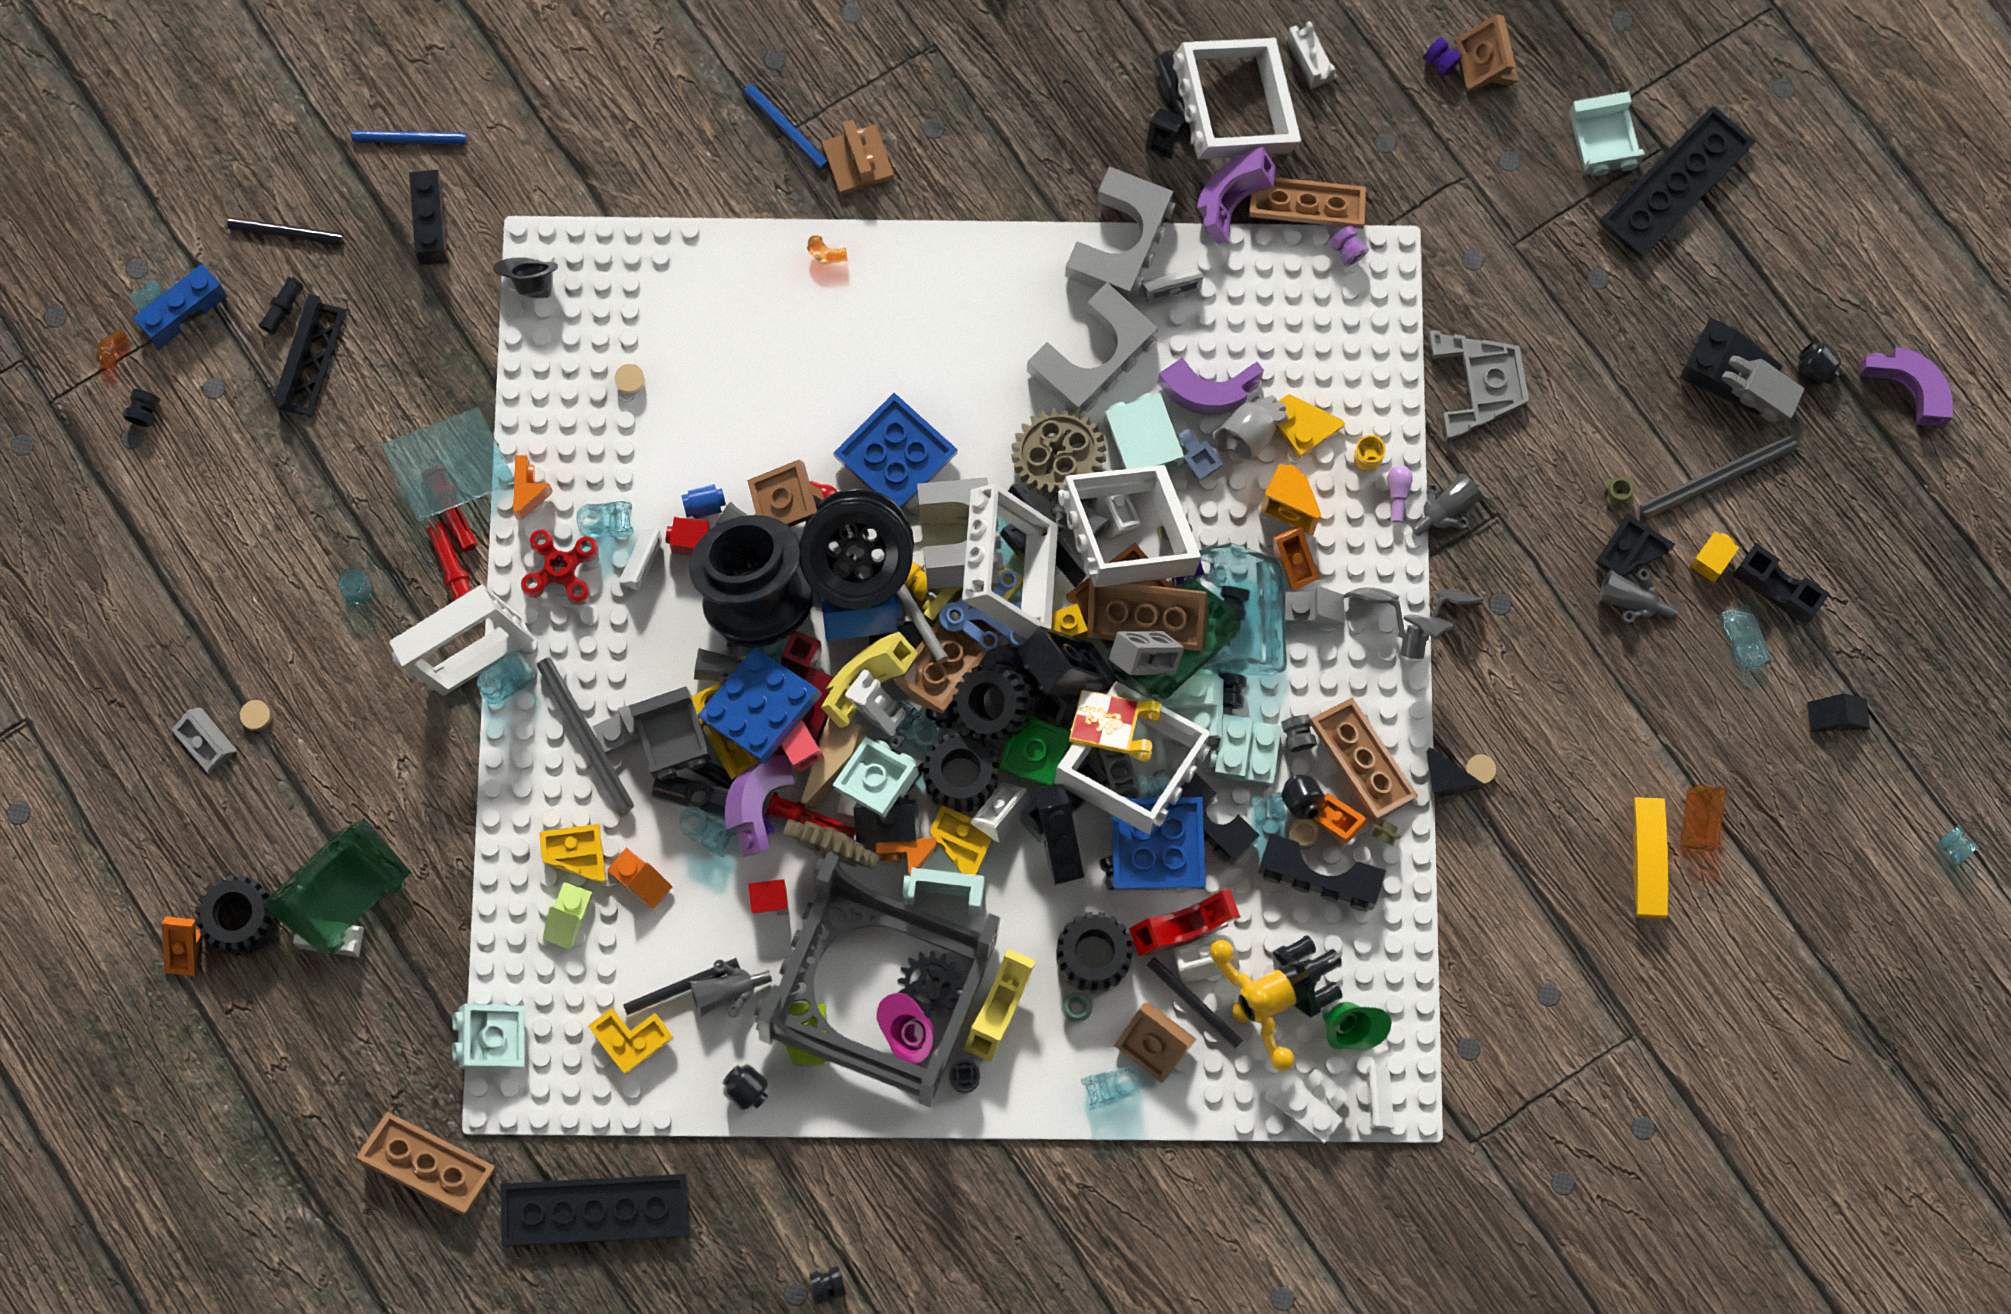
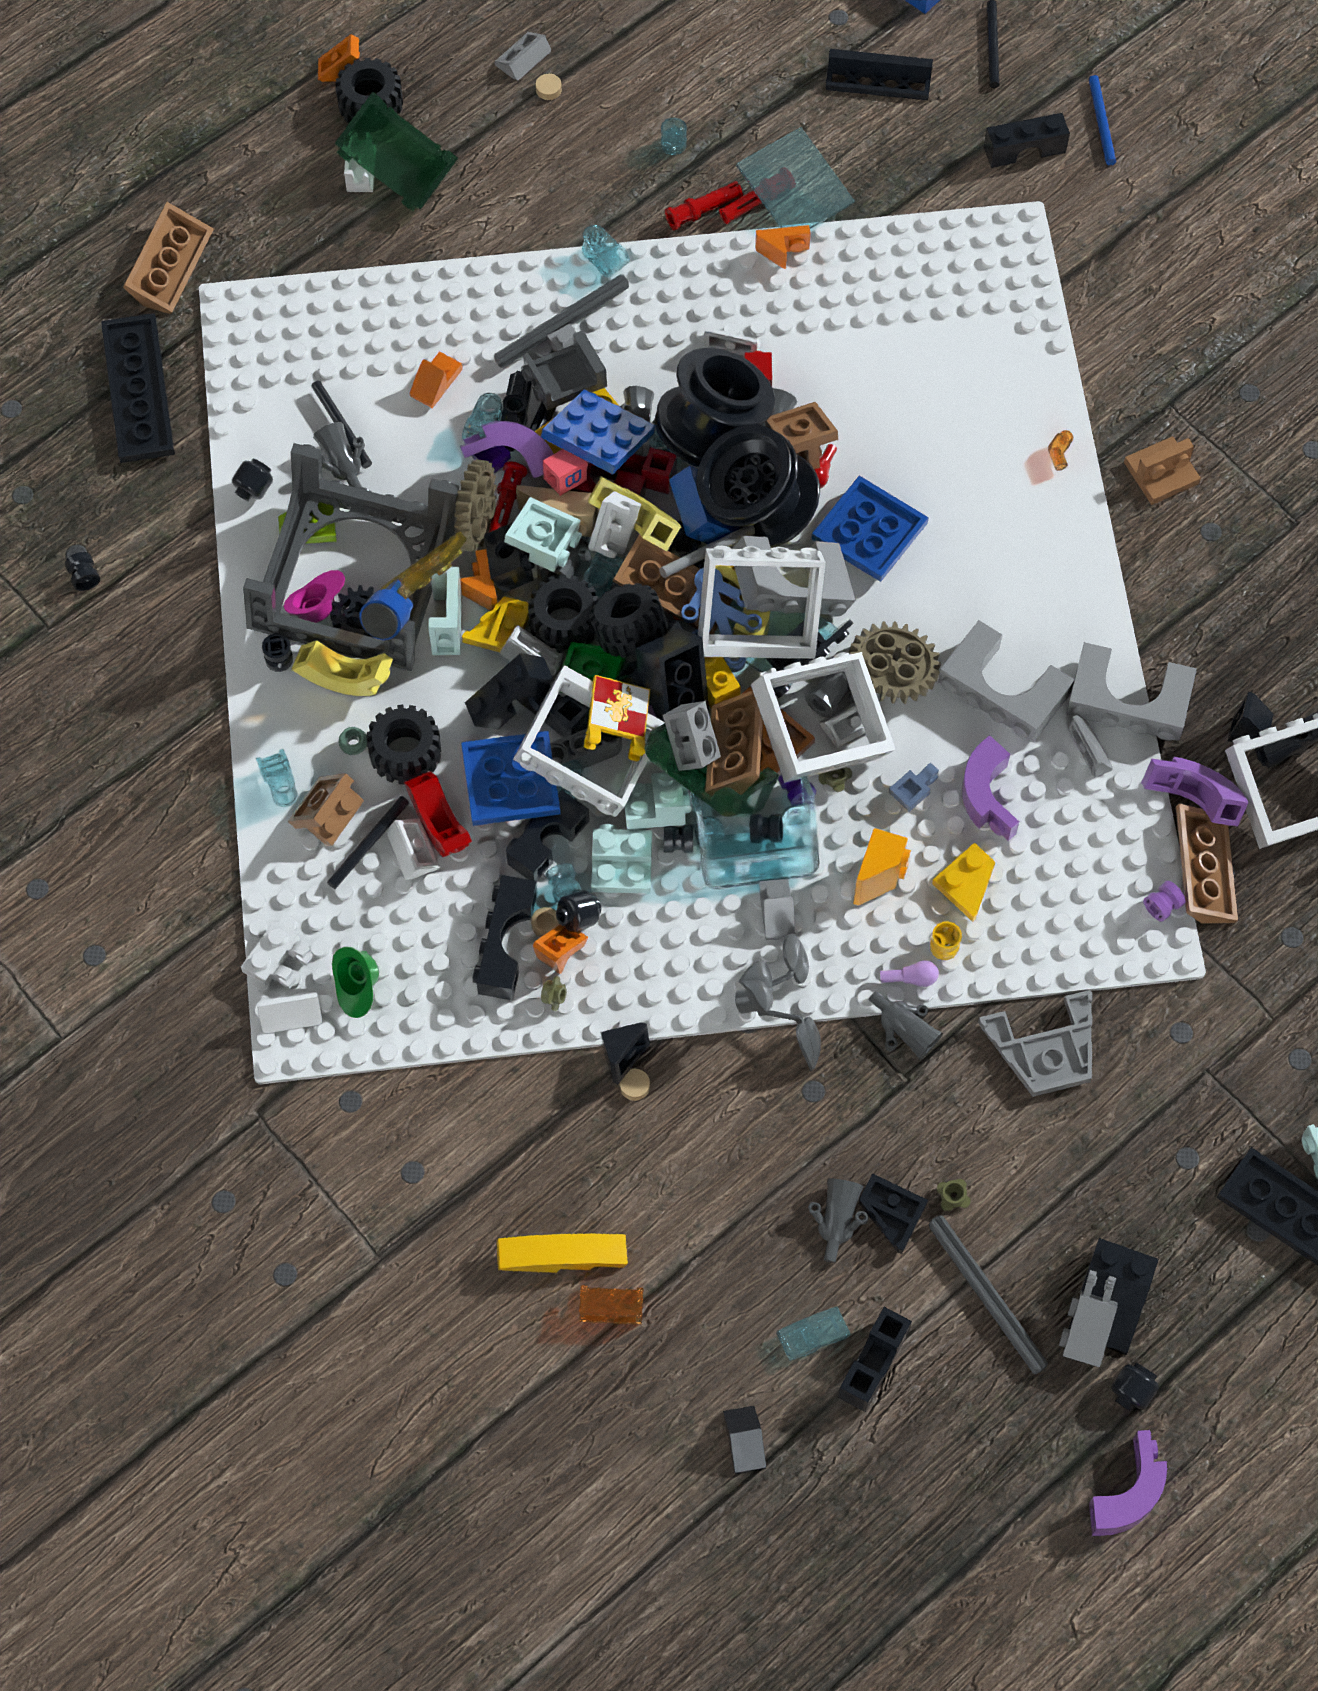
camera: 85 degrees right, 10 degrees down
(281, 305) = (921, 48): black pin -> none
(450, 623) = (606, 151): white window -> none
(489, 1036) = (279, 283): light aqua plate -> none
(528, 275) = (984, 215): black piece -> none
(552, 560) = (712, 278): red gear -> none
(566, 916) = (393, 329): yellowish green slope -> none
(575, 851) = (453, 326): yellow wing -> none
(608, 519) = (763, 309): clear light blue piece -> none
(626, 1046) = (283, 387): yellow plate -> none
(629, 379) = (902, 311): tan tile -> none
(703, 501) = (794, 378): blue brick -> none
(769, 897) = (424, 469): red panel -> none
(792, 133) = (1182, 407): blue bar -> none
(938, 923) = (390, 607): none -> plate
(1144, 433) = (925, 732): light aqua panel -> none
(1254, 424) = (952, 826): light grey piece -> none
(1287, 986) = (381, 903): wheel -> none
(1295, 558) = (821, 879): orange slope -> none
(1298, 733) = (644, 903): dark grey wheel -> none
(1363, 759) = (625, 964): medium nougat slope -> none
(1715, 556) = (897, 1293): yellow brick -> none
(1957, 845) = (616, 1568): clear light blue wheel -> none

